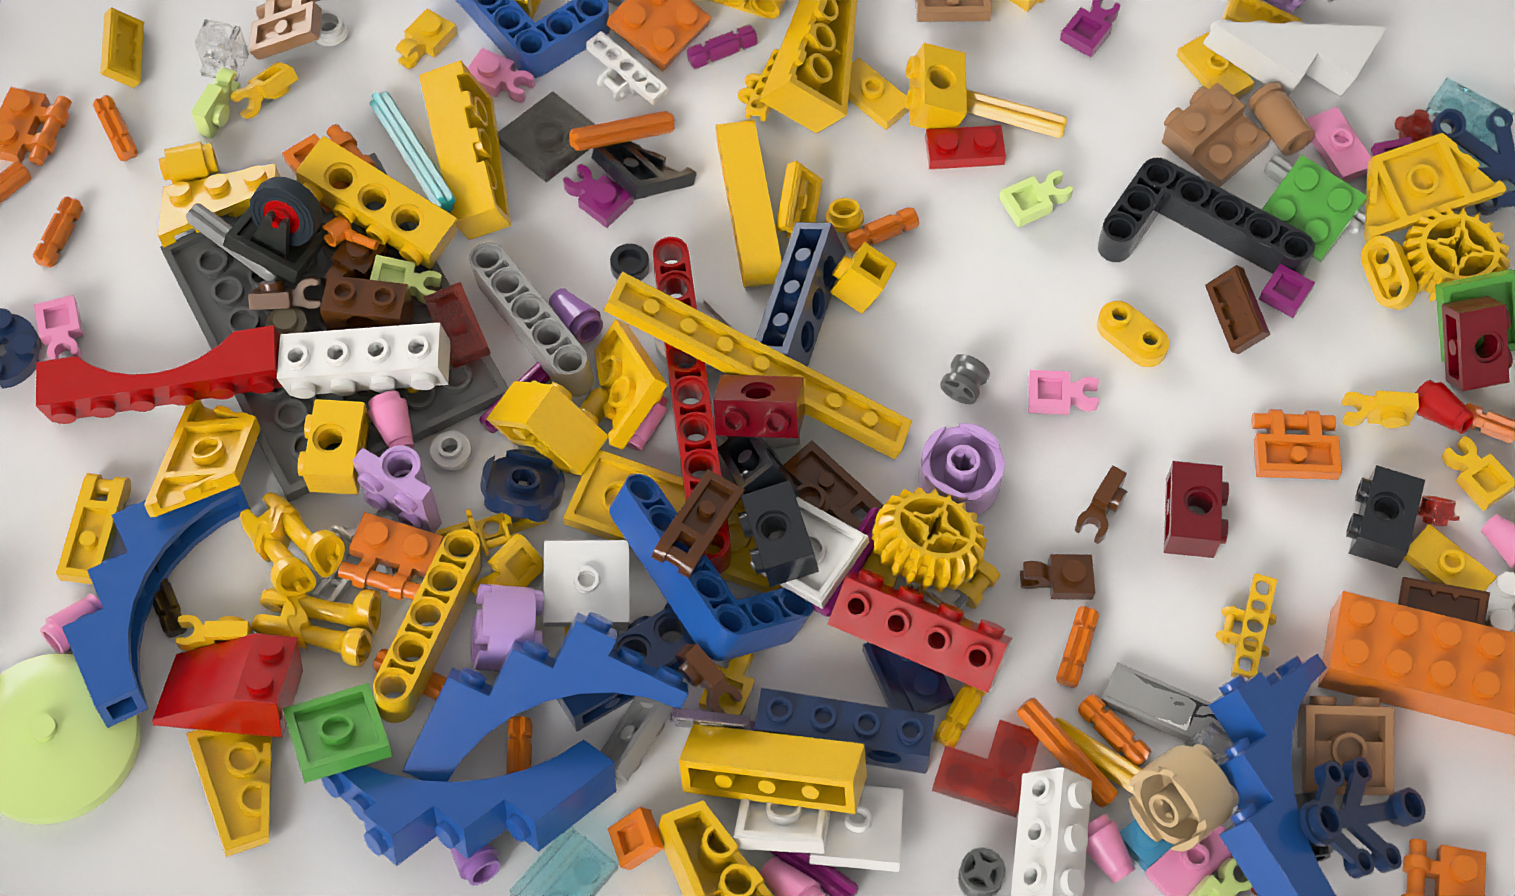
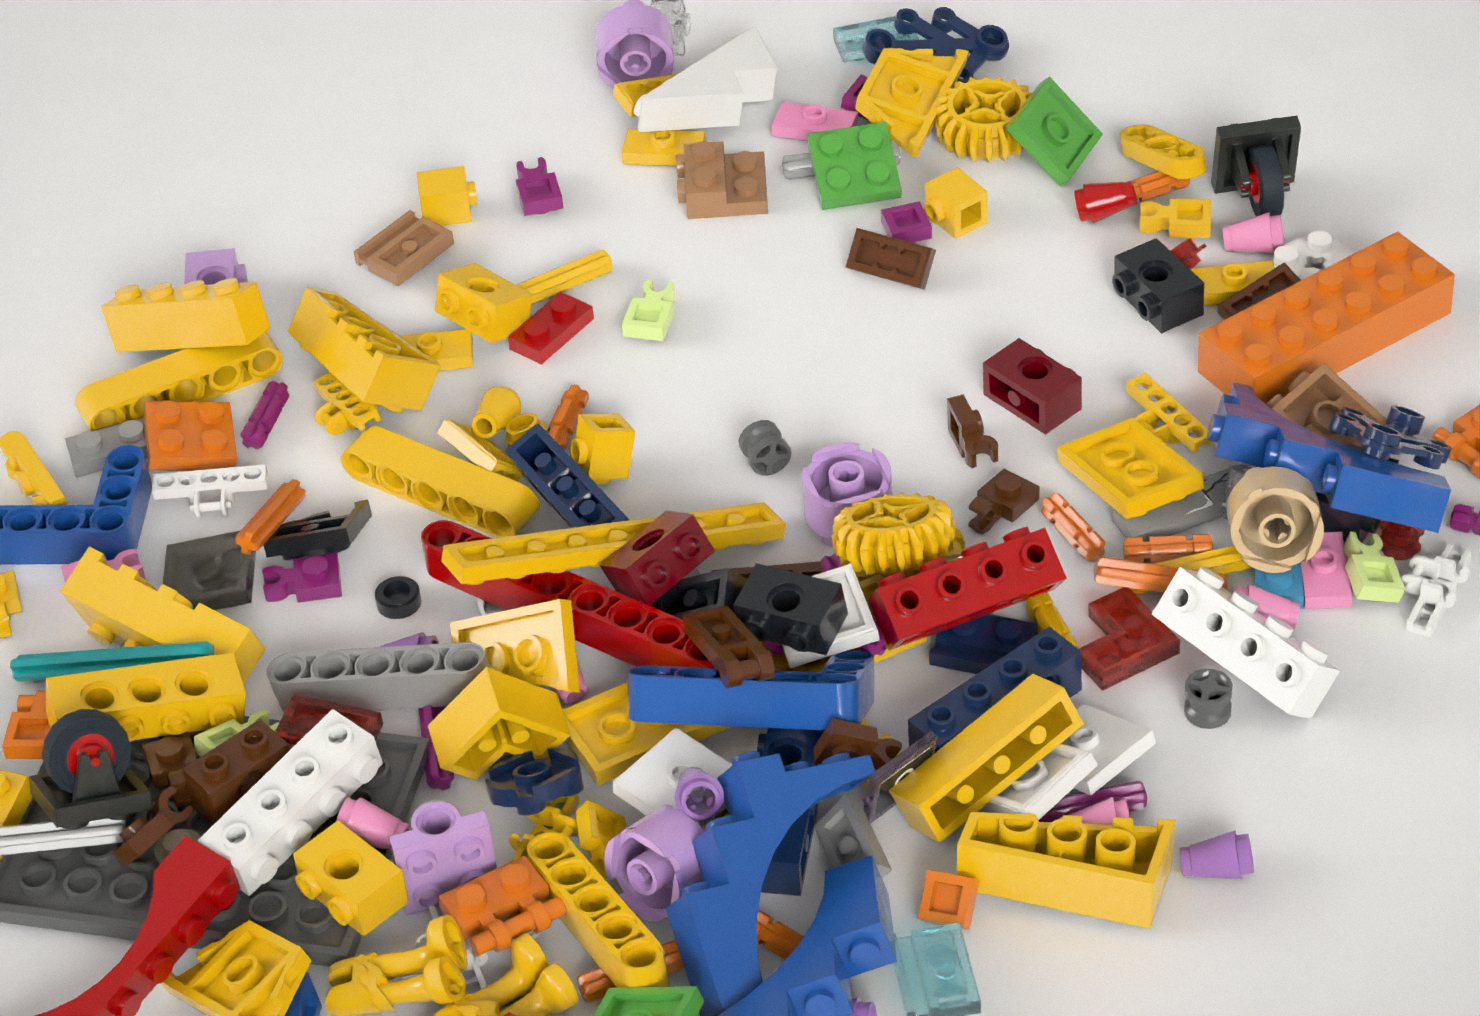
camera: 45 degrees left, 20 degrees down
(340, 229) = (145, 743): orange hand -> none
(557, 609) = (698, 803): none -> medium lavender cone
(842, 182) = (495, 411): none -> yellow cone
(1054, 393) = (841, 405): bright pink plate -> none
(1130, 333) = (838, 333): yellow plate -> none
(1164, 645) = (1130, 468): none -> yellow plate
(1202, 217) = (789, 221): black beam -> none
(1281, 118) = (756, 134): medium nougat piece -> none
(1292, 454) = (1049, 302): orange plate -> none
(1339, 307) = (956, 203): none -> yellow brick
(1384, 408) = (1070, 231): yellow plate -> none
(1388, 276) = (960, 155): yellow plate -> none
(1407, 125) = (849, 71): clear red plate -> none
(1462, 327) = (1075, 142): dark red brick -> none

